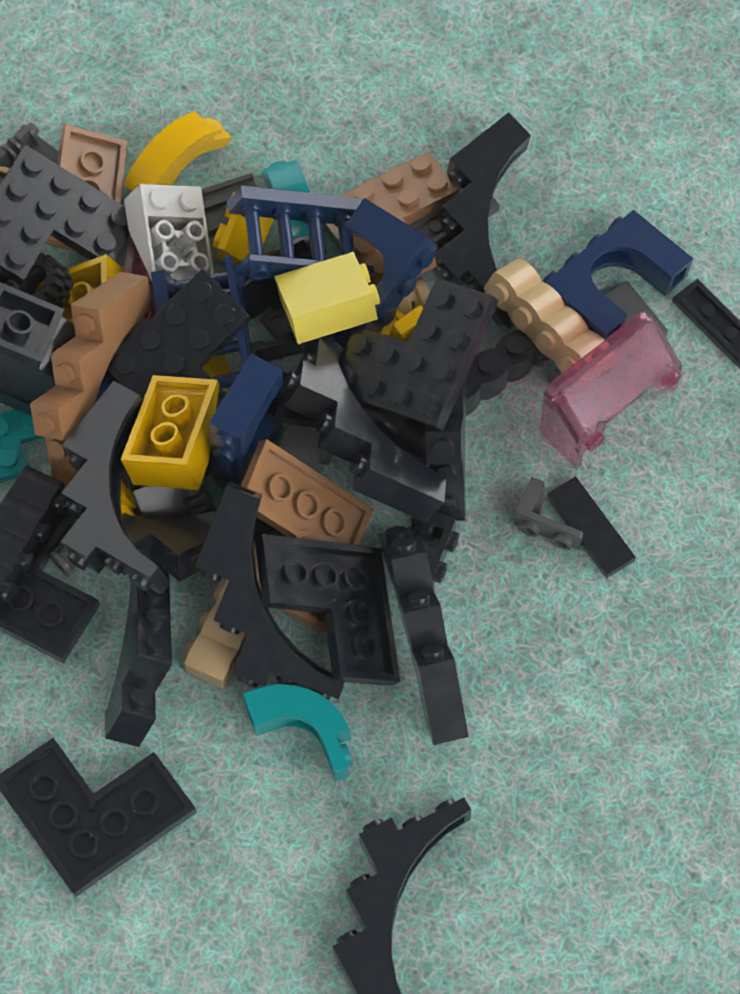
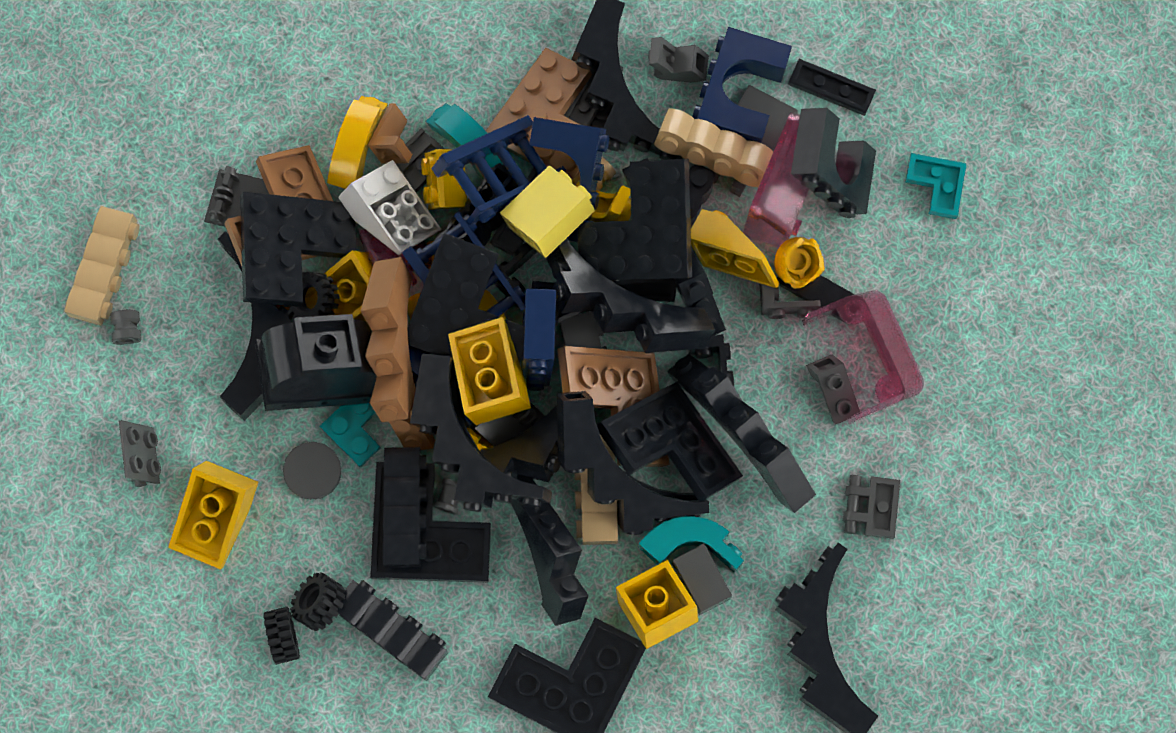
camera: 30 degrees left, 10 degrees up
(209, 165) = (386, 139): none -> medium nougat bracket
(227, 768) = (657, 604): none -> yellow brick
(291, 768) = (701, 579): none -> dark grey brick
(505, 430) = (728, 250): none -> yellow slope
(537, 787) = (881, 506): none -> dark grey plate
(552, 638) = (835, 387): none -> dark grey bracket
(559, 225) = (677, 63): none -> dark grey brick
(579, 479) = (799, 261): none -> yellow hair
(633, 657) = (903, 376): none -> clear pink windscreen
(641, 379) = (839, 184): none -> black arch

